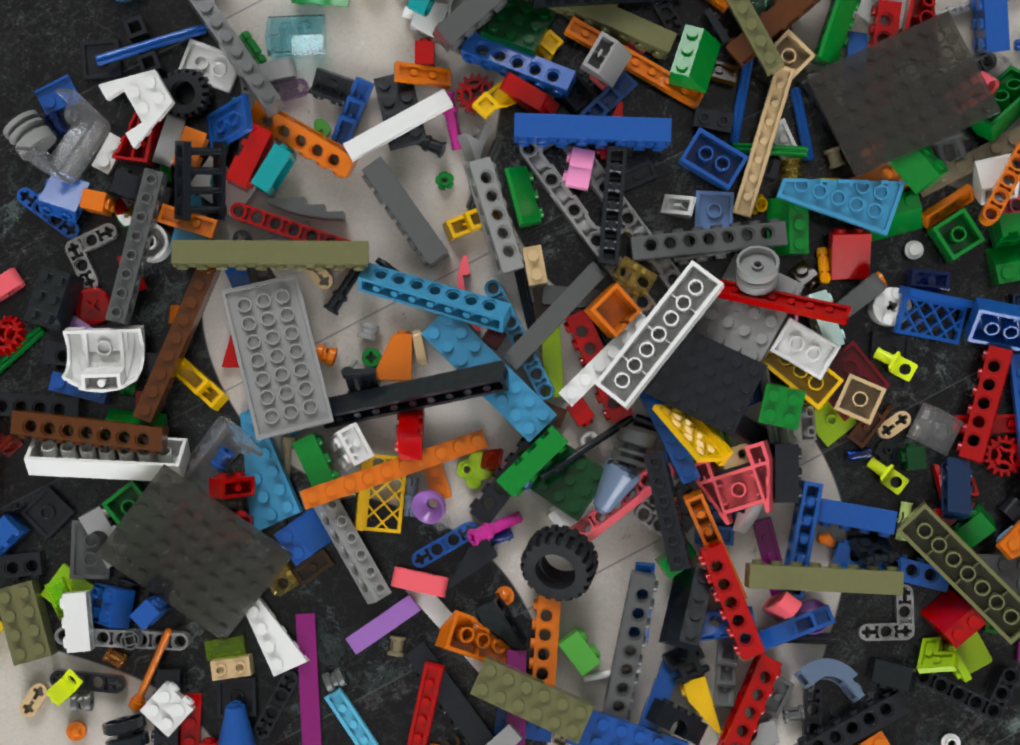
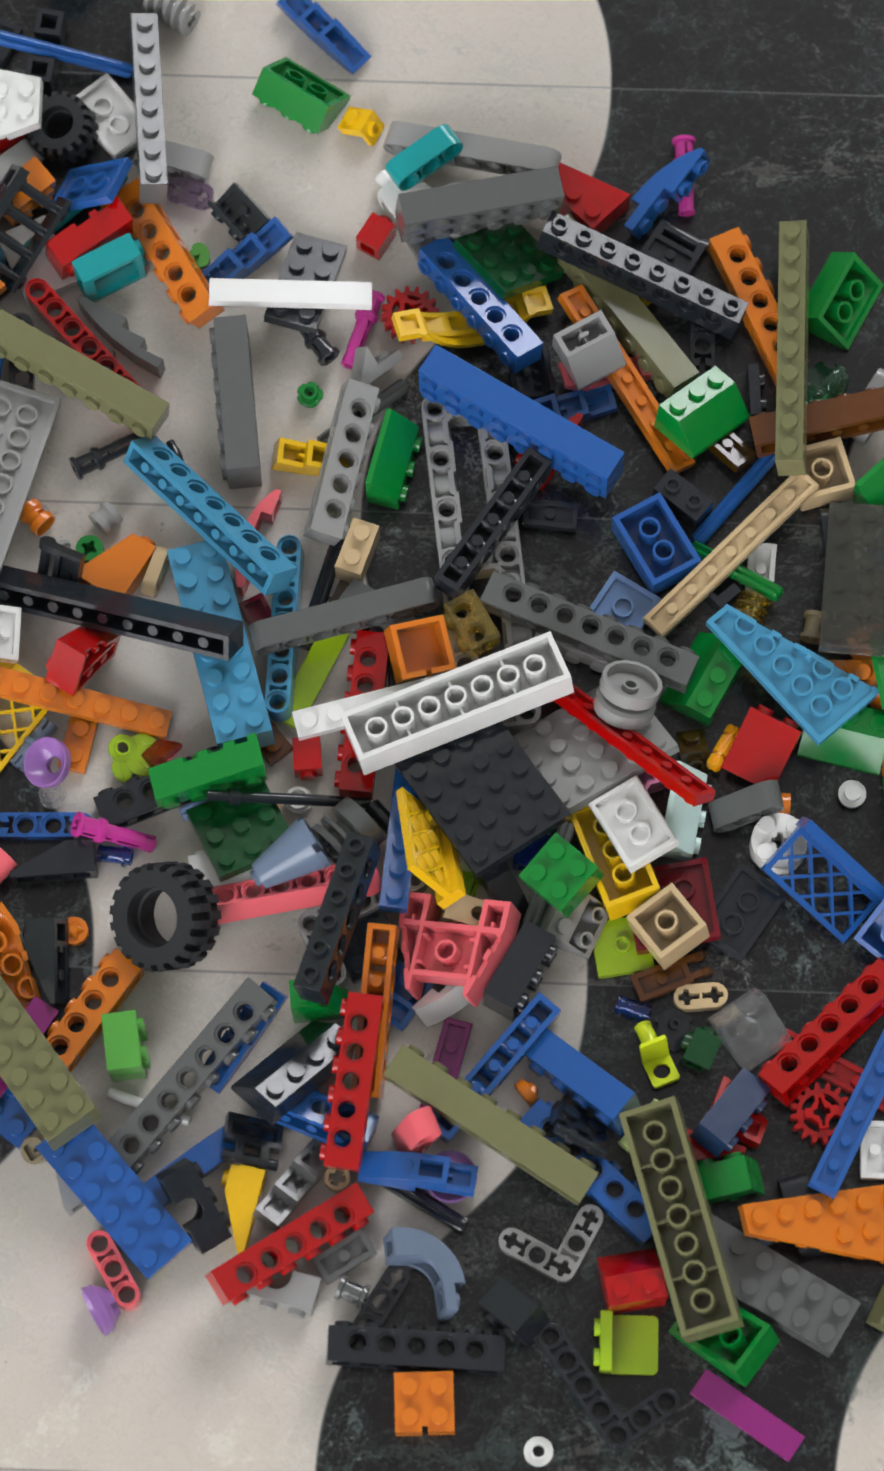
camera: 35 degrees right, 15 degrees down
(252, 47) = (174, 120): green axle -> none
(295, 35) = (233, 135): clear light blue slope -> none
(317, 280) = (82, 421): tan beam -> none
(422, 75) = (356, 256): orange plate -> none
(528, 96) = (467, 339): red slope -> none
(579, 168) = (480, 461): bright pink brick -> none
(678, 206) = (582, 579): white slope -> none
(760, 205) = (688, 636): yellow plate -> none
(801, 121) = (796, 565): blue axle -> none
(894, 363) = (744, 913): neon yellow bracket -> none
(928, 280) = (849, 835): clear blue brick -> none
(933, 659) = (580, 1315): lime plate -> none

